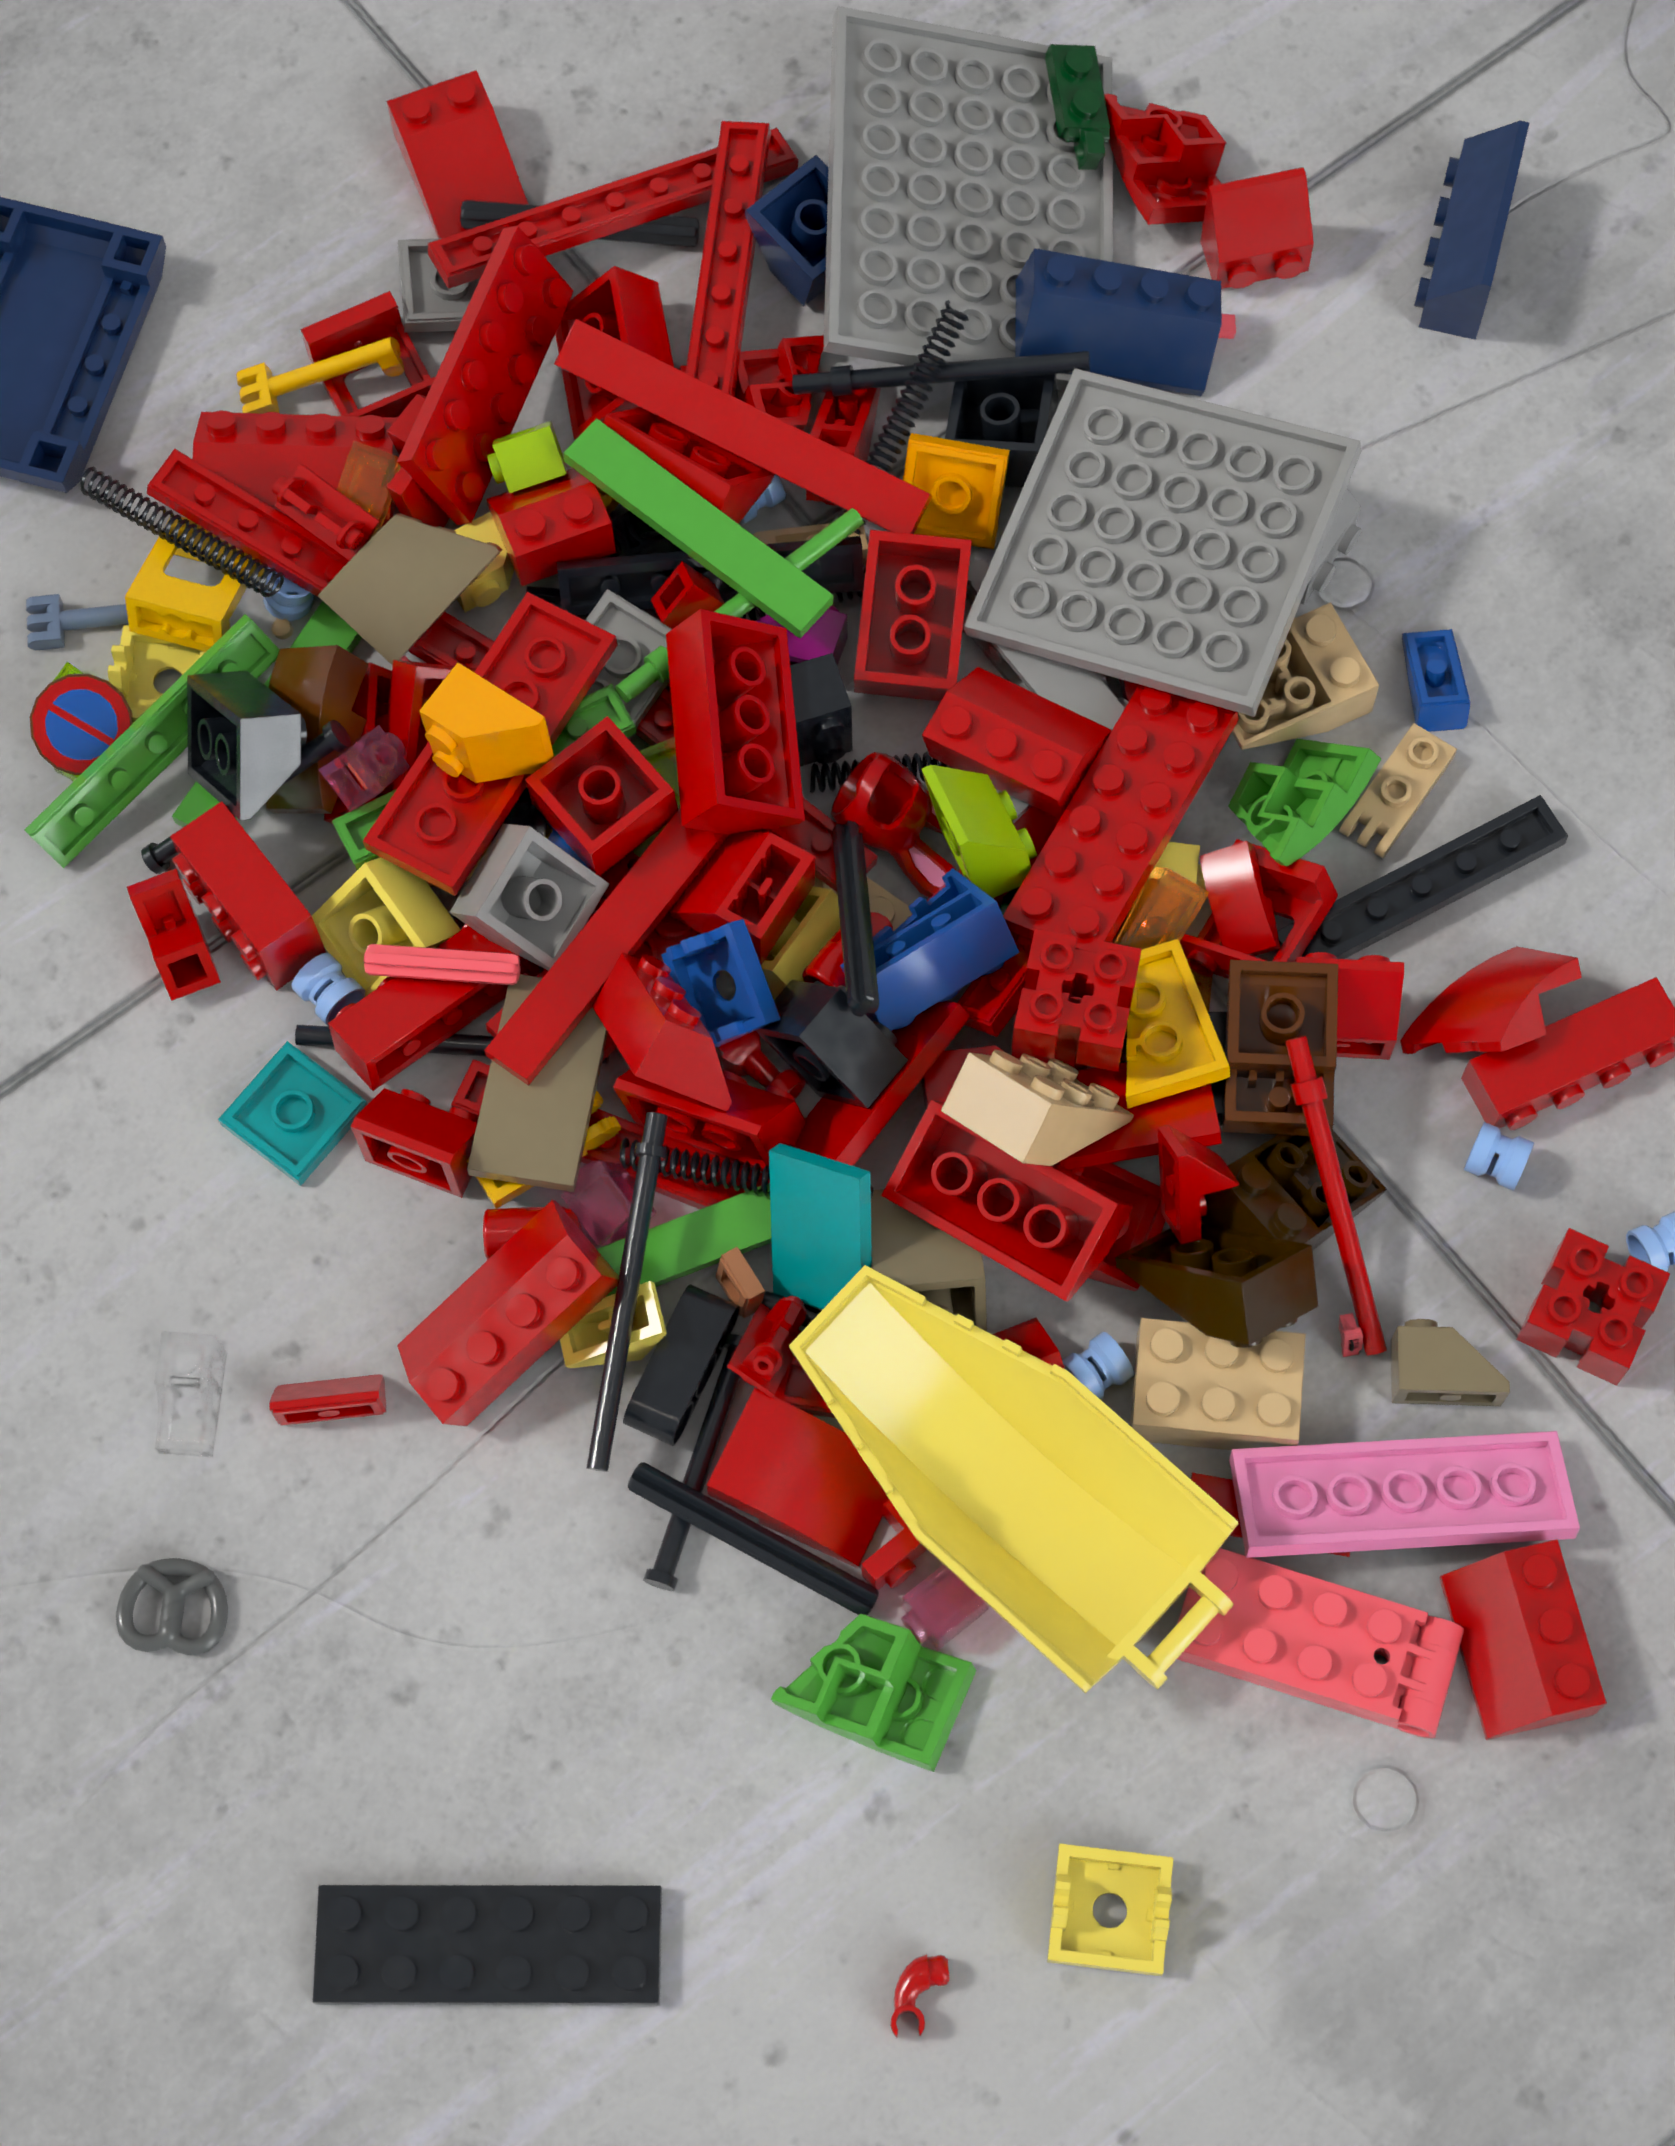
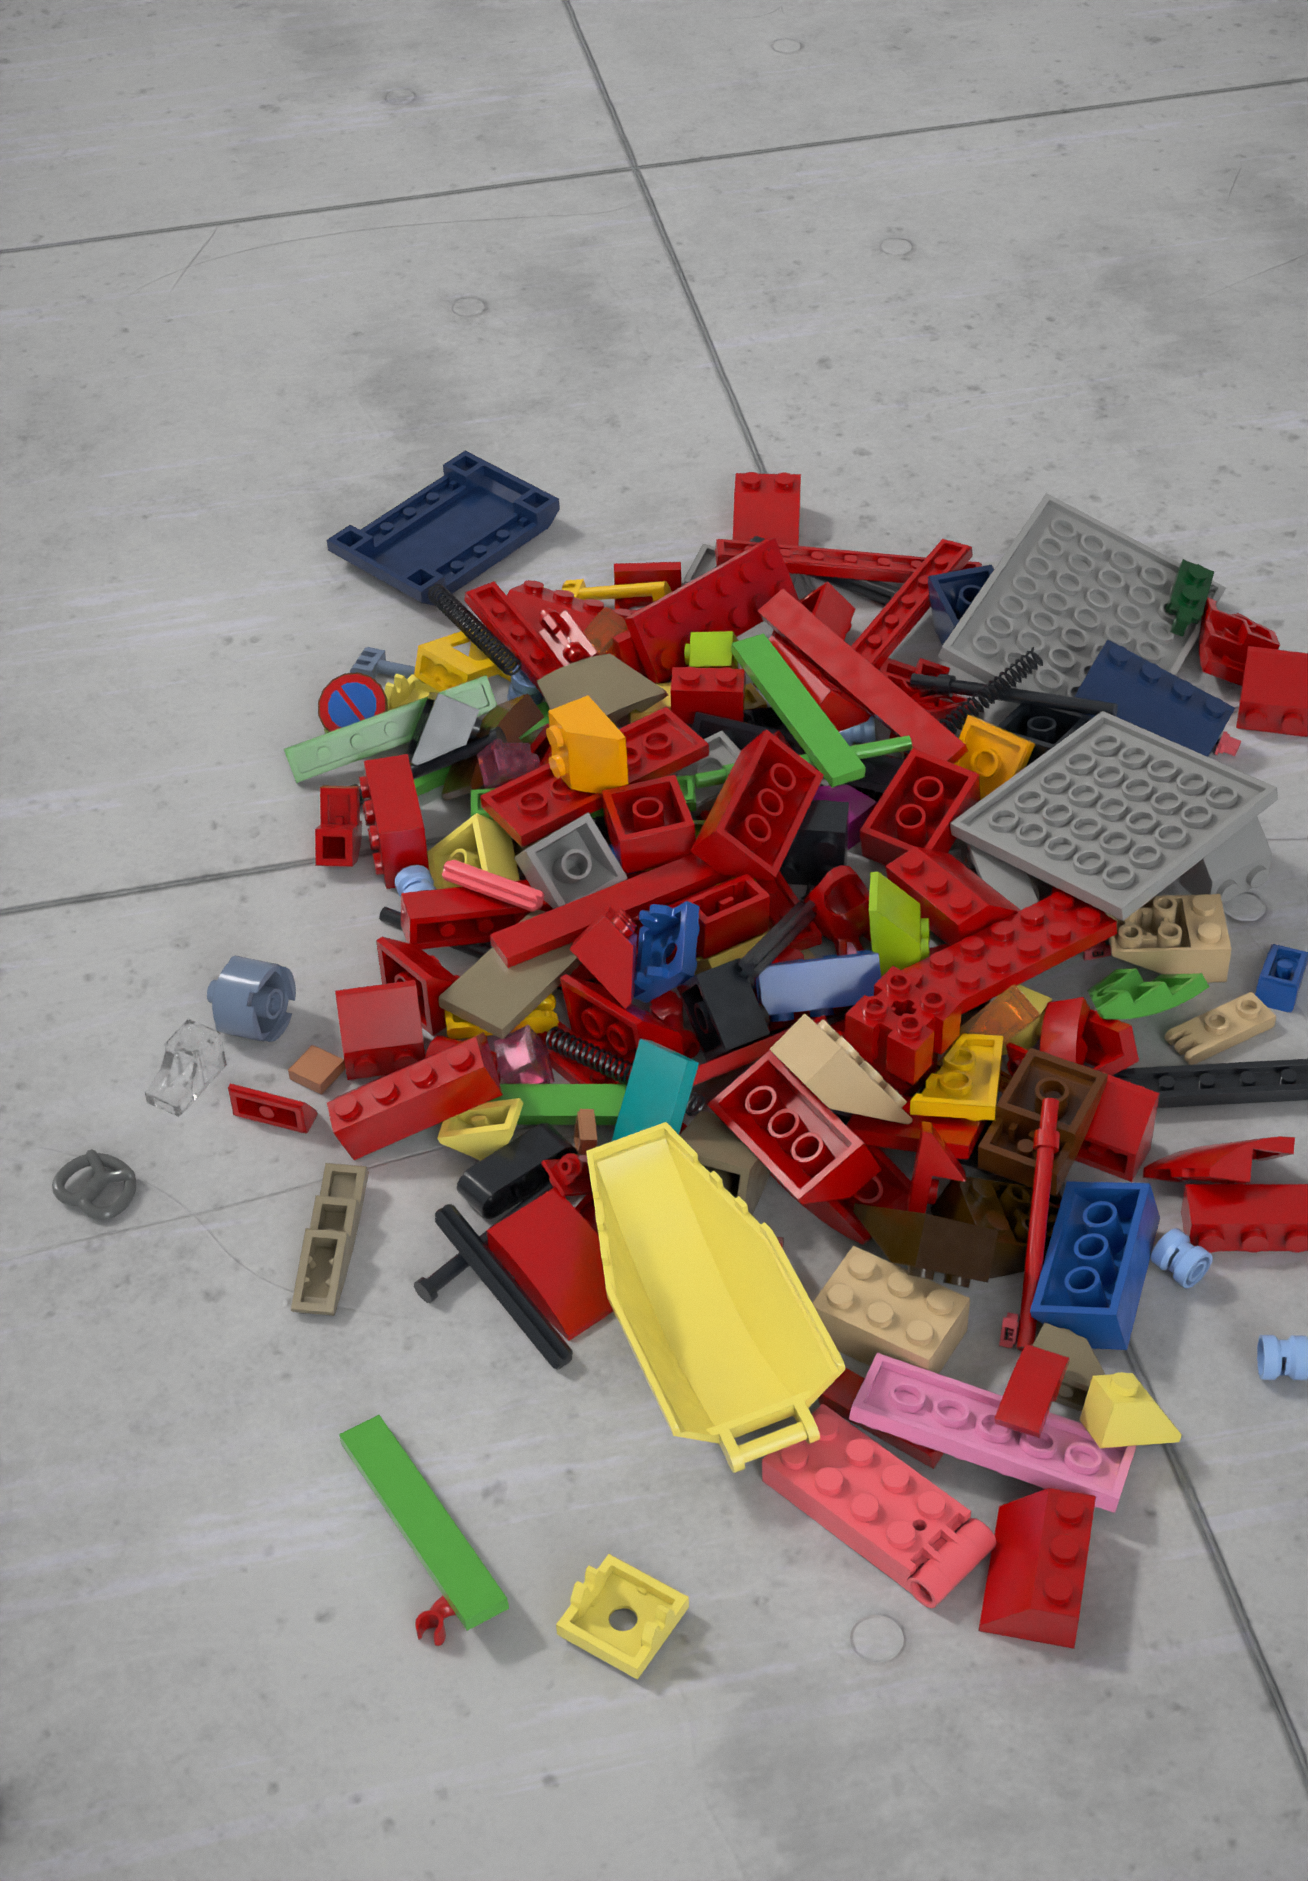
camera: 25 degrees right, 25 degrees down
(219, 1258) = (252, 999): none -> sand blue brick
(293, 1113) = (347, 951): teal tile -> none
(349, 1315) = (316, 1069): none -> nougat tile
(413, 1240) = (379, 1028): none -> red slope
(488, 1945) = (171, 1461): black plate -> none
(509, 1562) = (330, 1239): none -> dark tan slope
(650, 1154) = (561, 1023): black bar -> none
(829, 1896) = (424, 1523): none -> bright green tile
(882, 1691) = (539, 1414): bright green slope -> none
(895, 1559) = (595, 1333): red bracket -> none
(941, 1608) = (612, 1377): clear pink brick -> none
(1100, 1365) = (812, 1272): light blue wheel -> none
(1413, 1209) = (1098, 1261): none -> blue slope
(1431, 1431) = (1031, 1390): none -> red slope
(1536, 1409) = (1124, 1413): none -> light yellow slope
(1561, 1311) = (1206, 1373): red brick -> none

